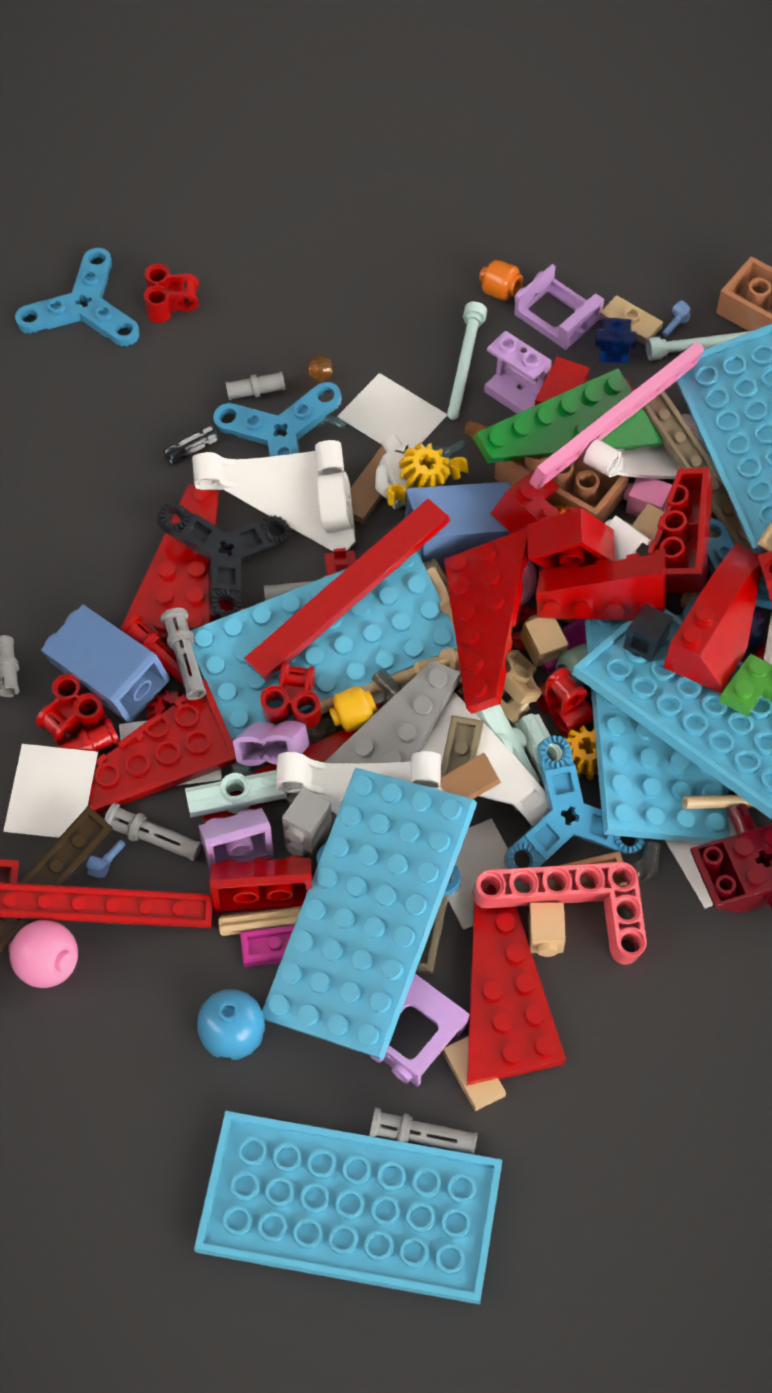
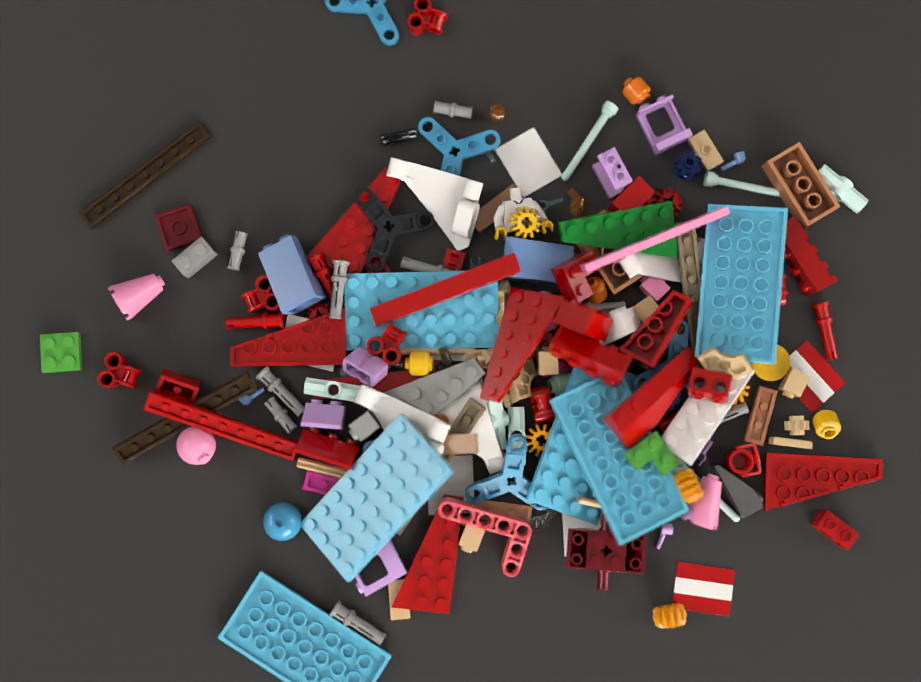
camera: 20 degrees right, 25 degrees up
(49, 789) = (234, 345): white sticker -> none
(164, 867) = (280, 415): none -> light grey pin
(648, 632) = (602, 396): black panel -> none

